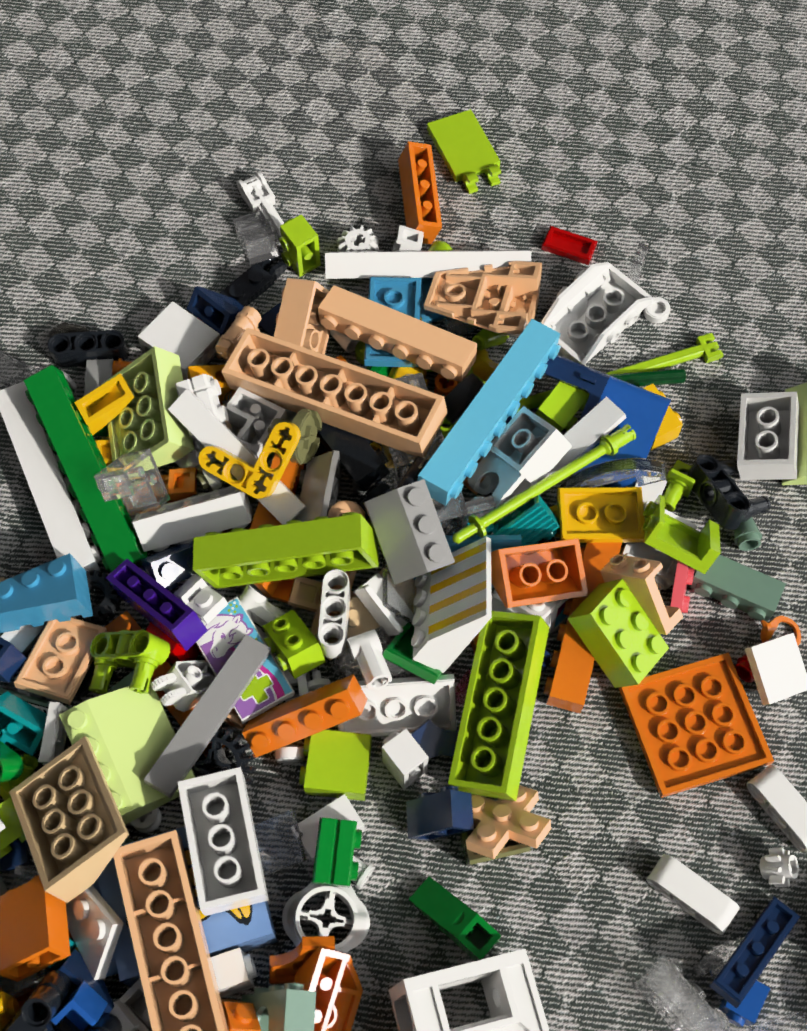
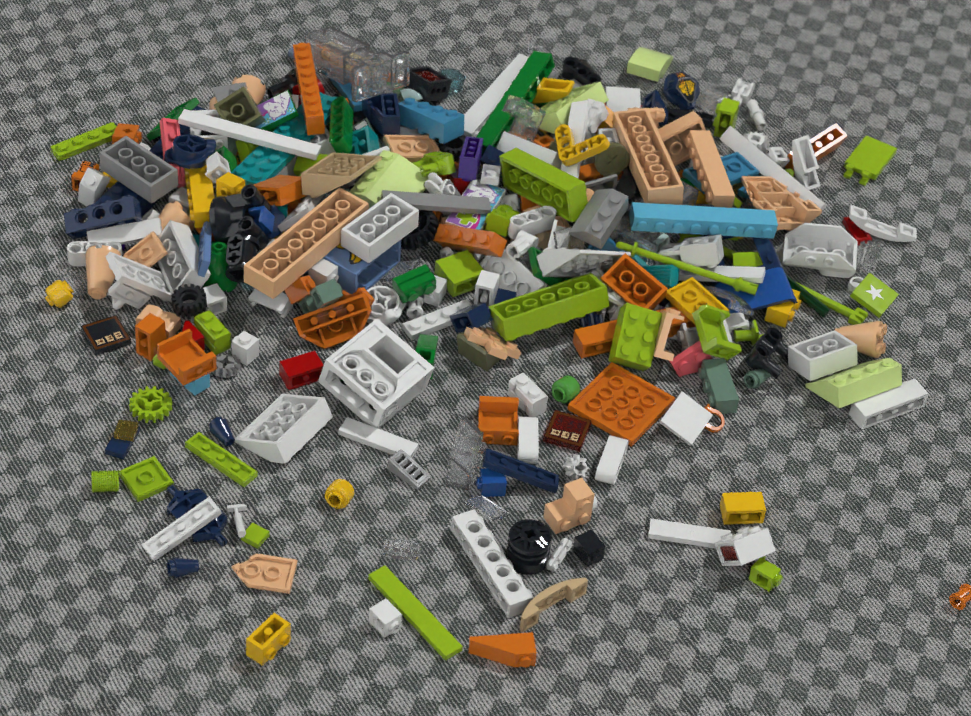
camera: 50 degrees right, 20 degrees down
(128, 255) = (649, 64): none -> yellowish green slope
(205, 256) = (681, 90): none -> dark blue helmet
(307, 207) = (756, 114): none -> white pin
(393, 852) = (433, 321): none -> white plate
(451, 222) = (805, 162): none -> white slope
(593, 218) = (902, 233): none -> white slope
(616, 837) = (530, 396): none -> white brick
(634, 778) = (565, 389): none -> bright green head
(636, 911) = (498, 419): none -> orange panel
(690, 305) = (874, 295): none -> lime tile
(698, 826) = (567, 430): none -> clear red tile
(761, 369) = (867, 337): none -> light nougat cone

